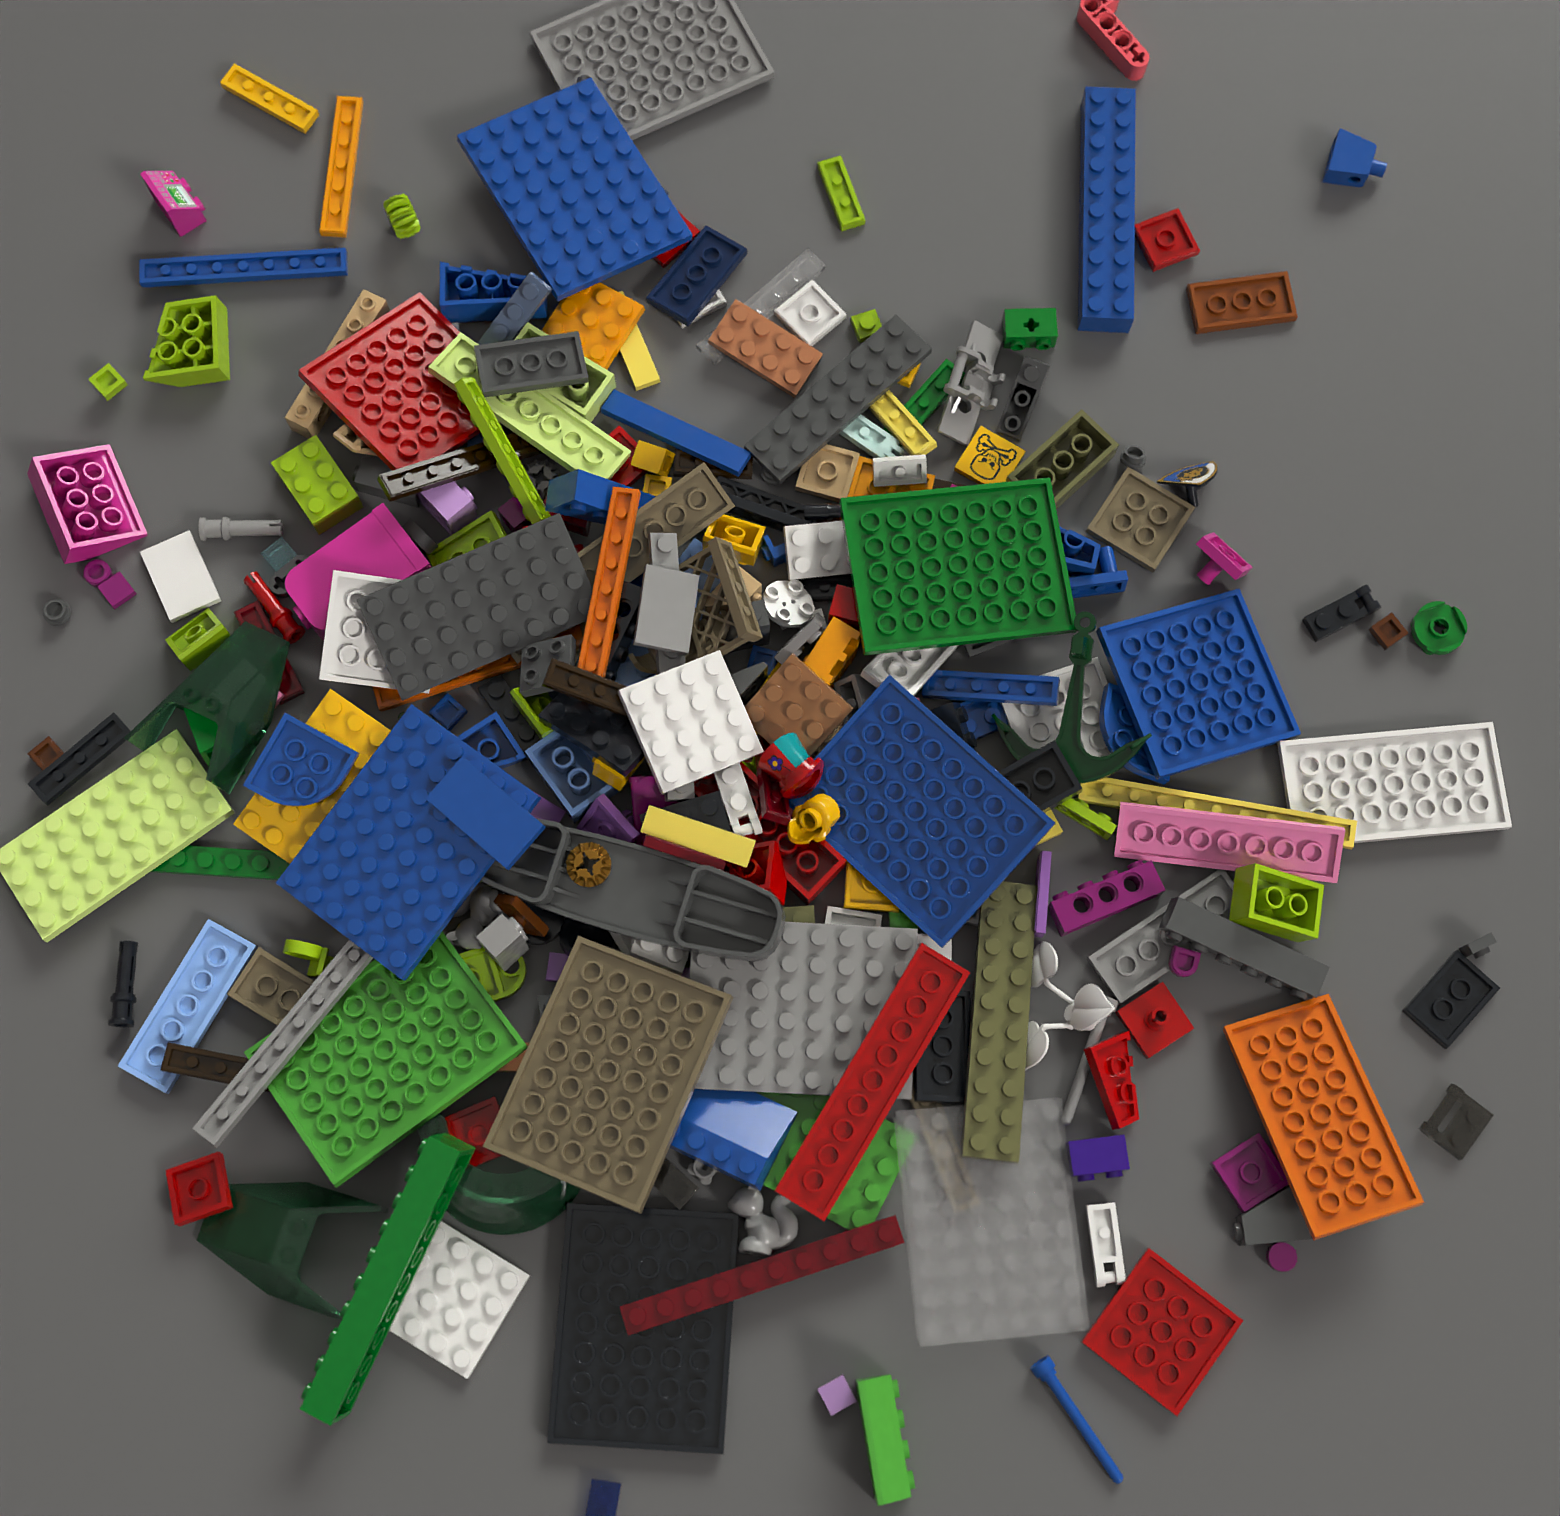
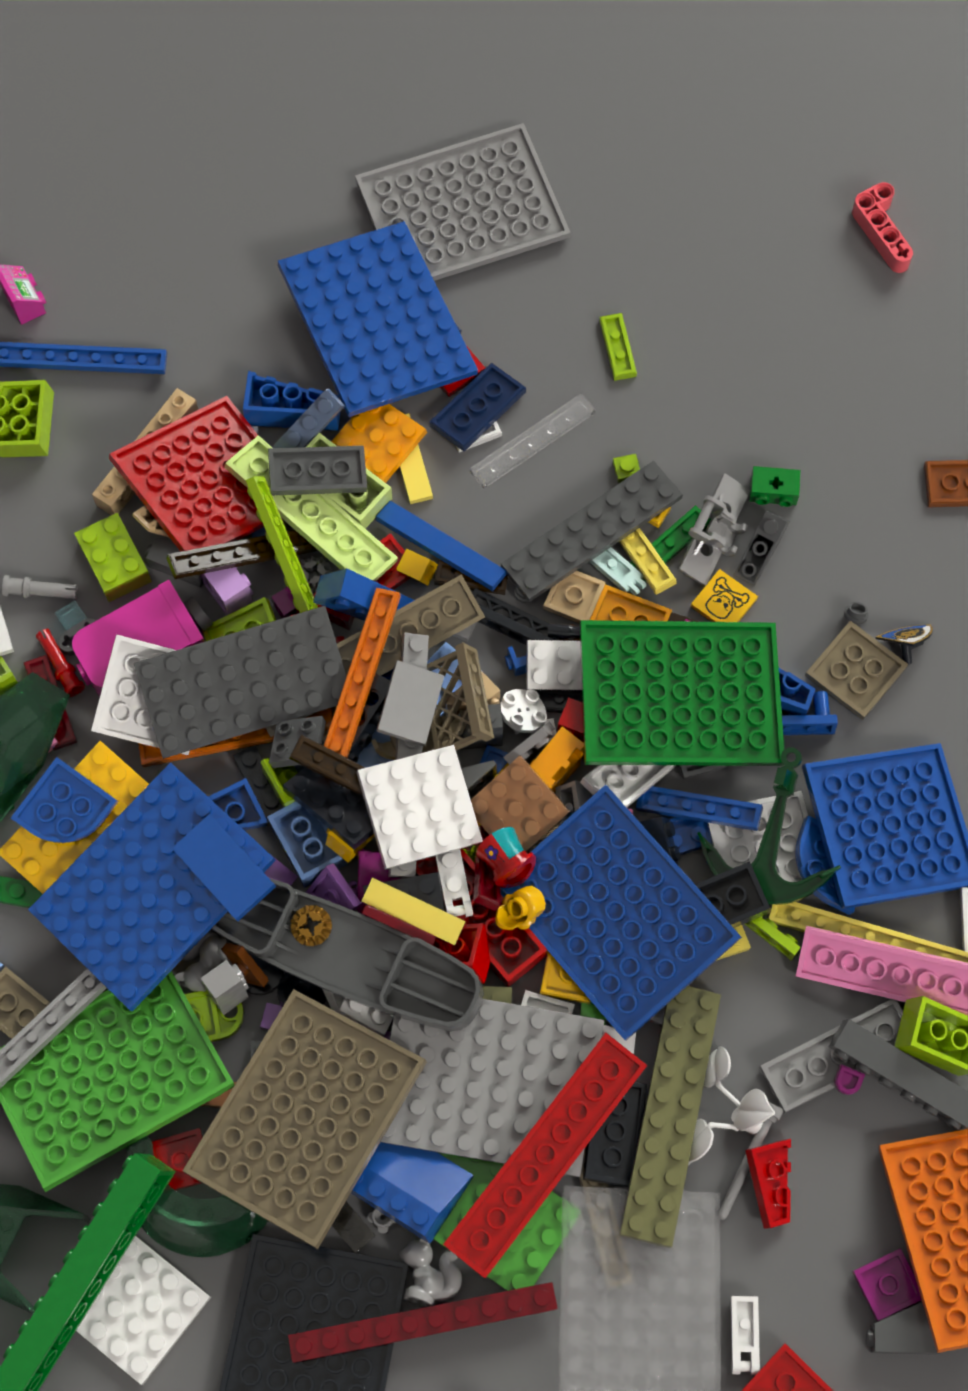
camera: 10 degrees right, 5 degrees down
(269, 98) = (116, 211): yellow plate -> none
(316, 954) = (50, 976): lime piece -> none
(341, 166) = (172, 277): light orange tile -> none
(401, 216) = (219, 327): lime gear -> none
(448, 711) = (203, 774): blue tile -> none
(656, 484) = (417, 589): yellow plate -> none
(743, 535) = (489, 645): yellow slope -> none
(765, 348) = (531, 478): nougat plate -> none
(810, 313) = (576, 452): white tile -> none
(899, 470) = (639, 601): white plate -> none
(1042, 883) = (724, 1002): medium lavender tile -> none
(1069, 457) = (796, 606): olive brick -> none
(1098, 1157) = (747, 1252): dark purple brick -> none
(1107, 210) = (858, 387): blue brick -> none
(1147, 887) = (747, 1030): magenta brick -> none
(1154, 1020) = (815, 1132): red tile -> none
(1165, 240) = (909, 419): red plate -> none
(1222, 558) = (927, 714): dark pink tile -> none
(1281, 1257) = (909, 1367): magenta tile -> none

